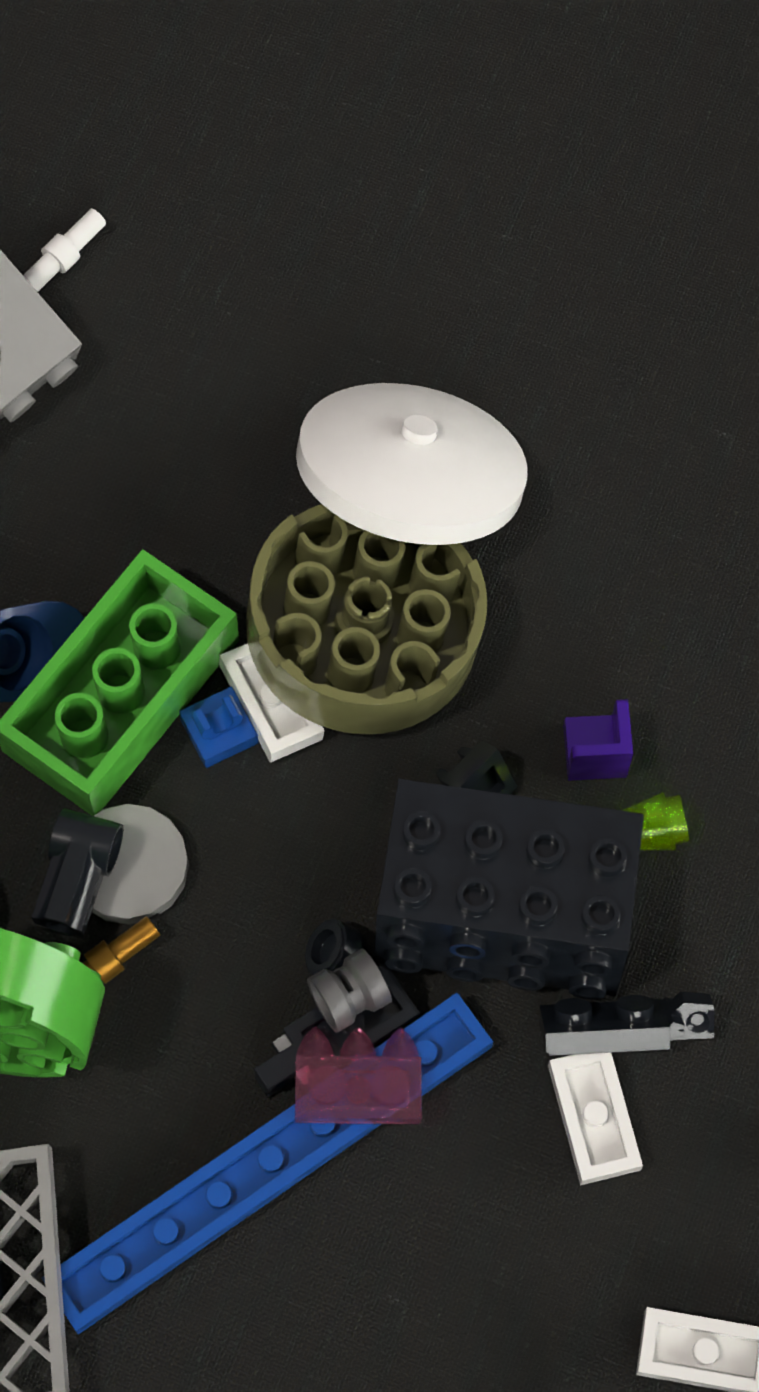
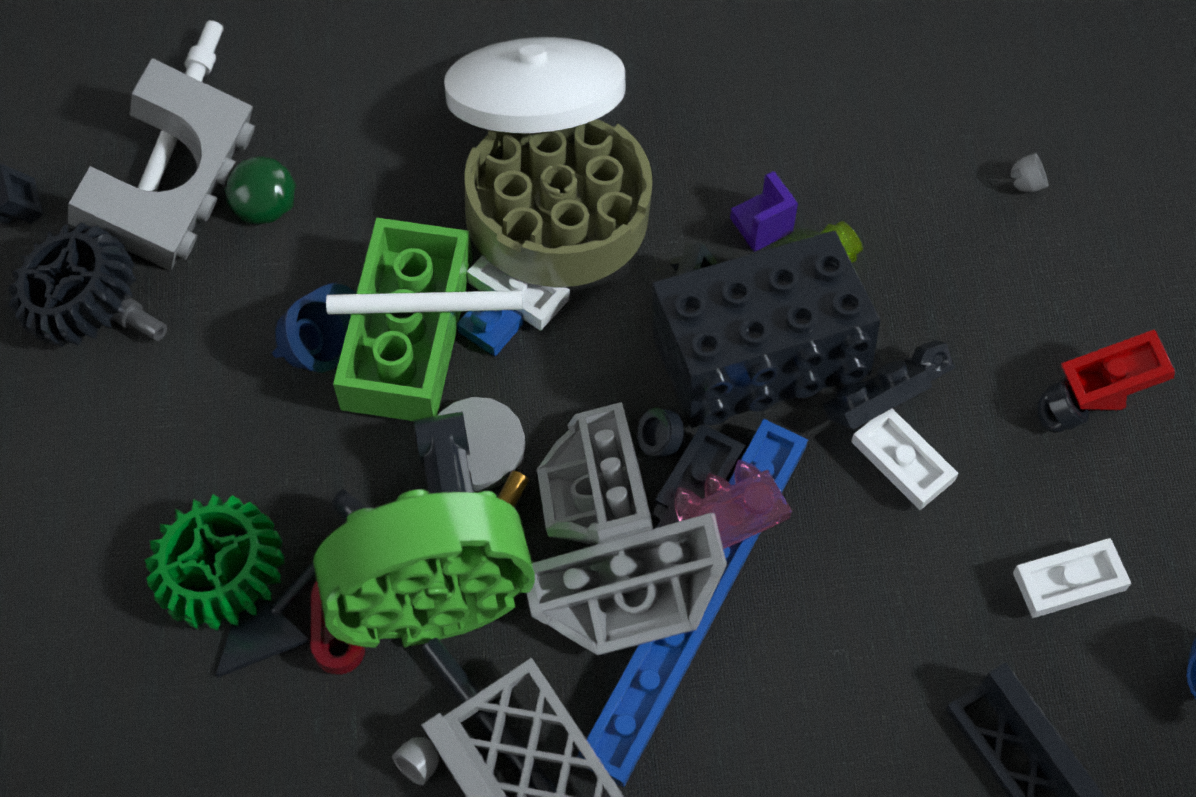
camera: 25 degrees left, 5 degrees down
(46, 446) = (260, 190): none -> dark green hair
(140, 679) = (424, 302): none -> white bar
(191, 1118) = (631, 586): none -> light grey wedge
(224, 978) = (594, 481): none -> light grey wedge
(349, 990) = (693, 445): flat silver wheel -> none

